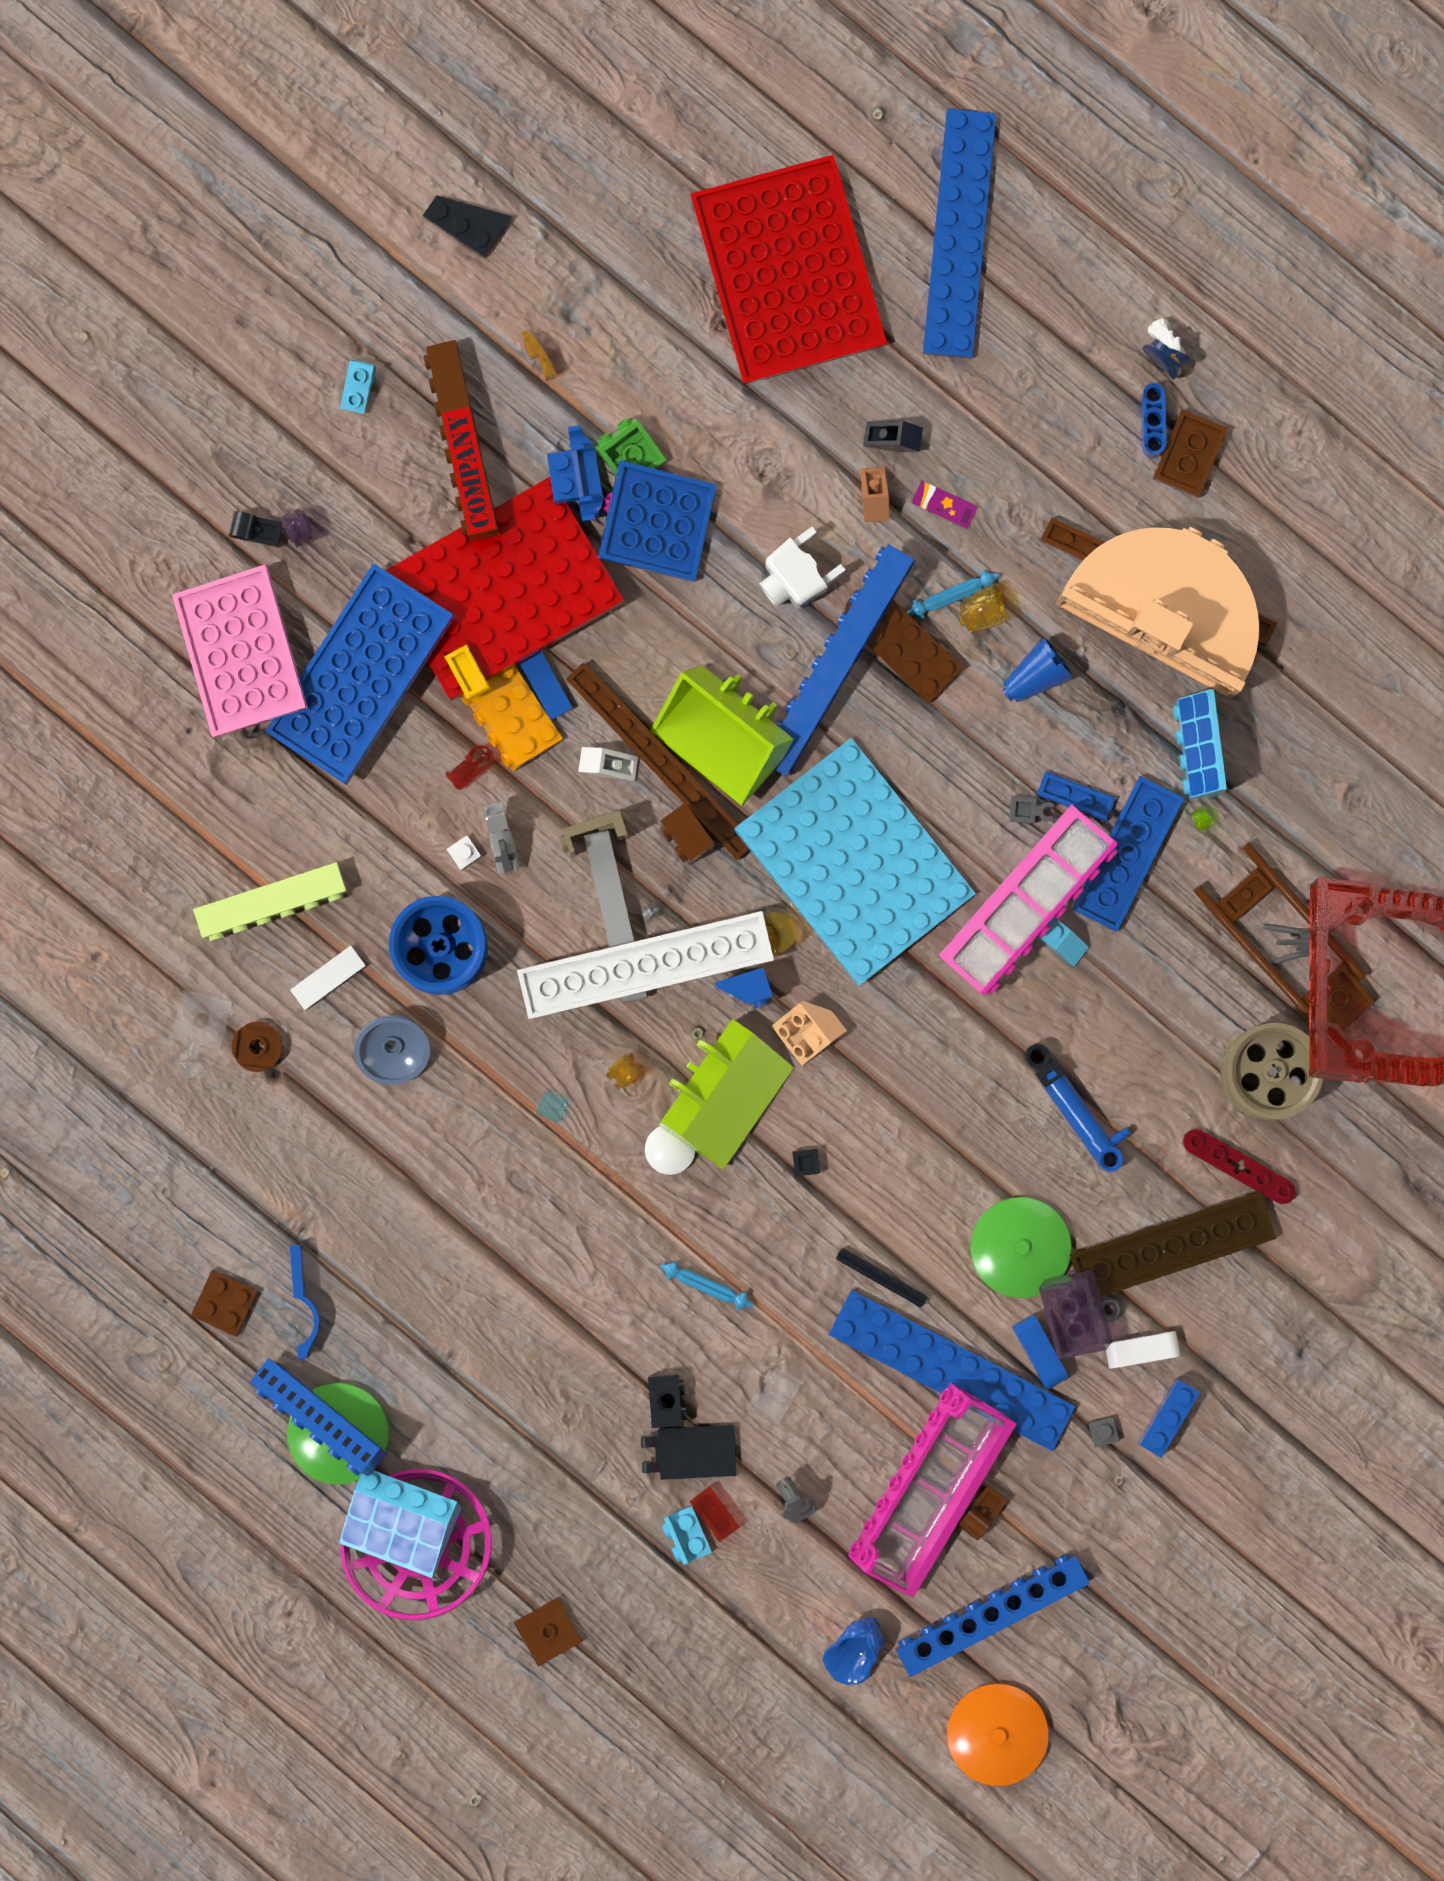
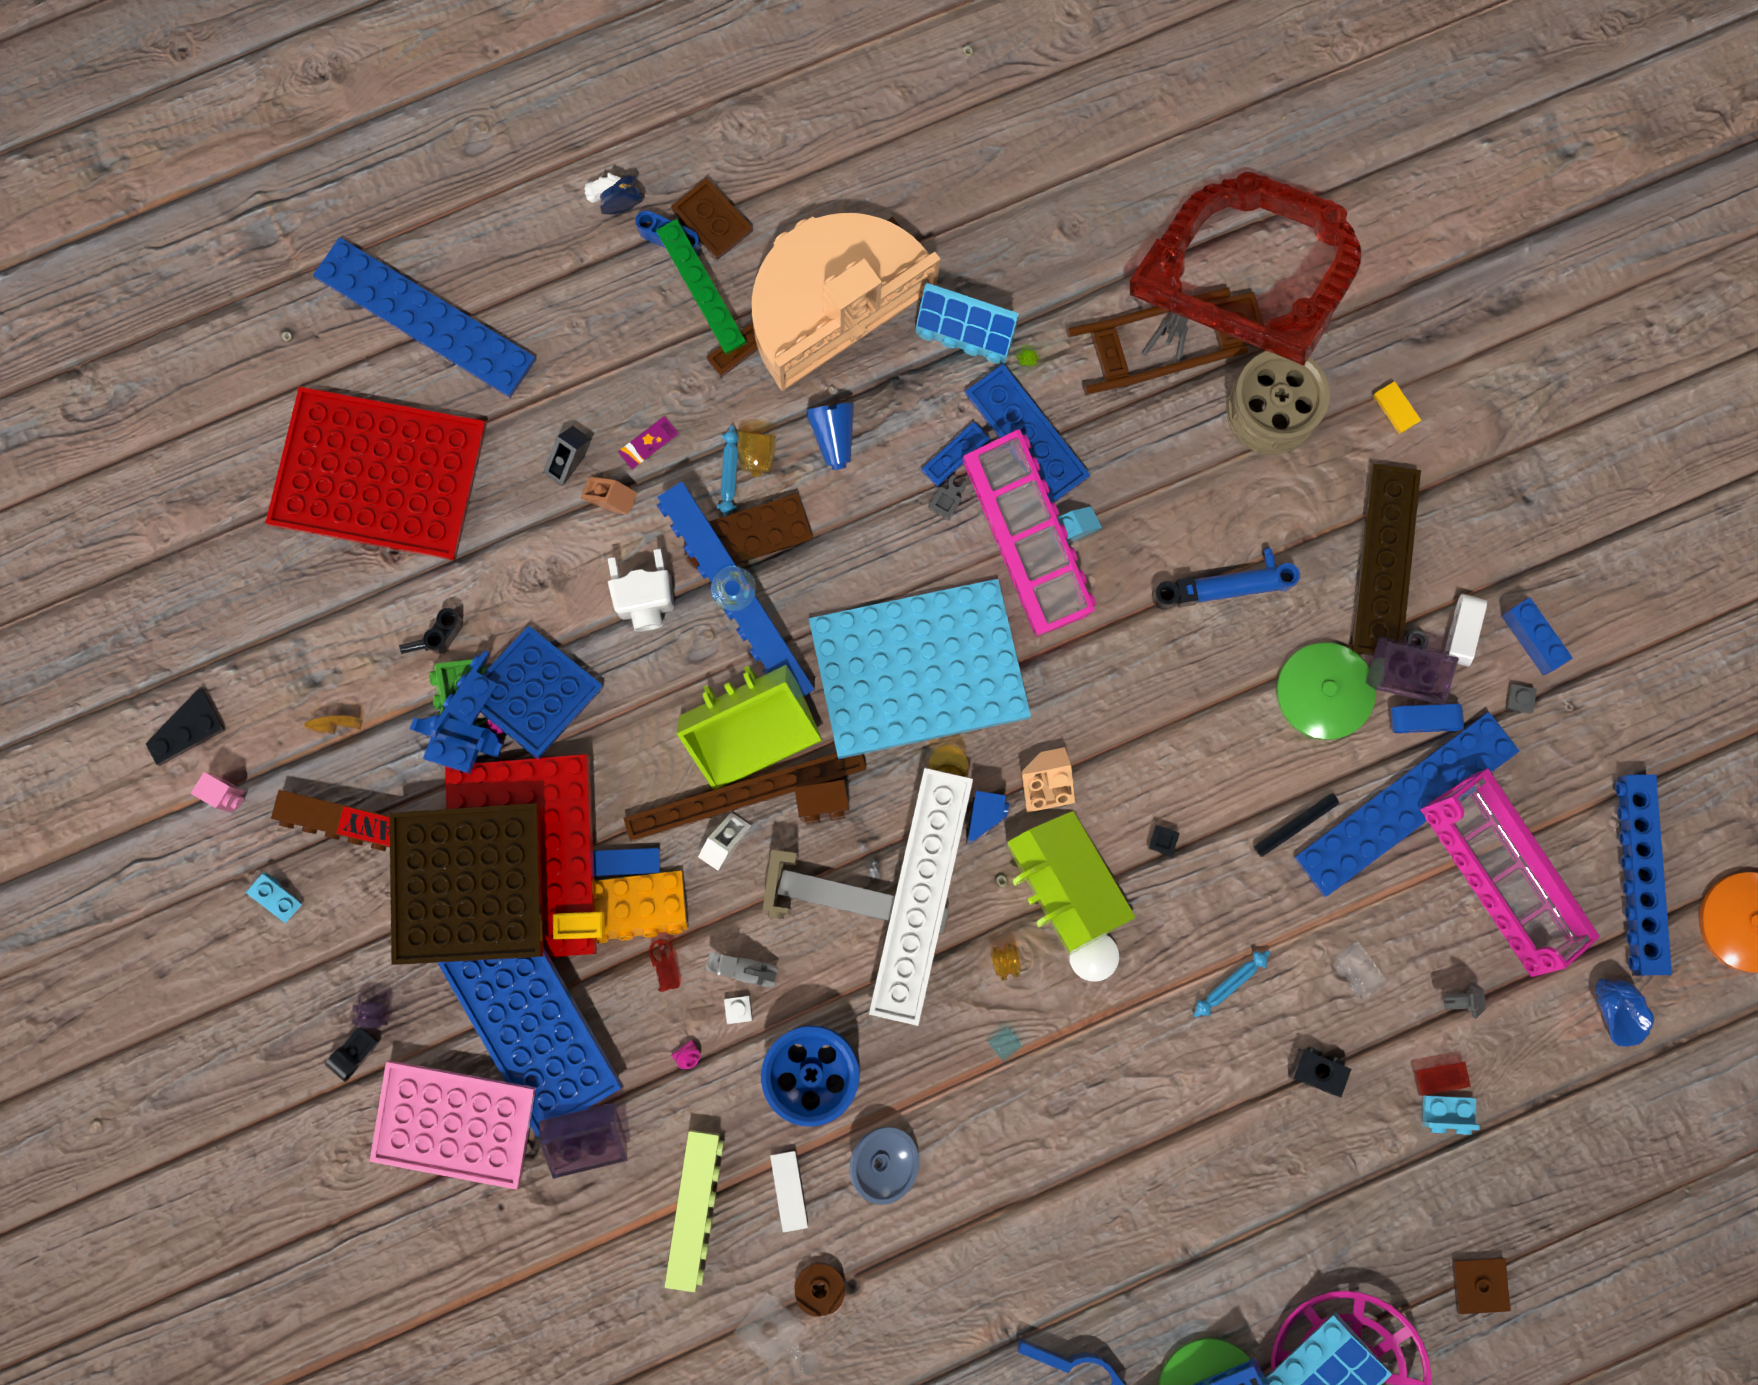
camera: 60 degrees left, 5 degrees down
(282, 773) = (583, 1140): none -> clear purple brick
(400, 827) = (687, 1056): none -> dark pink plate
(425, 288) = (218, 792): none -> bright pink brick
(454, 554) = (465, 884): none -> dark brown plate
(621, 469) = (469, 699): none -> blue bracket
(672, 404) = (447, 634): none -> black beam
(692, 1452) = (1376, 1071): black tile -> none
(852, 659) = (745, 595): none -> clear light blue piece
(982, 1513) = (1553, 843): reddish brown plate -> none
(1114, 479) = (701, 287): none -> green plate
(1217, 1153) = (1323, 485): dark red piece -> none
(1328, 1189) = (1397, 407): none -> yellow tile

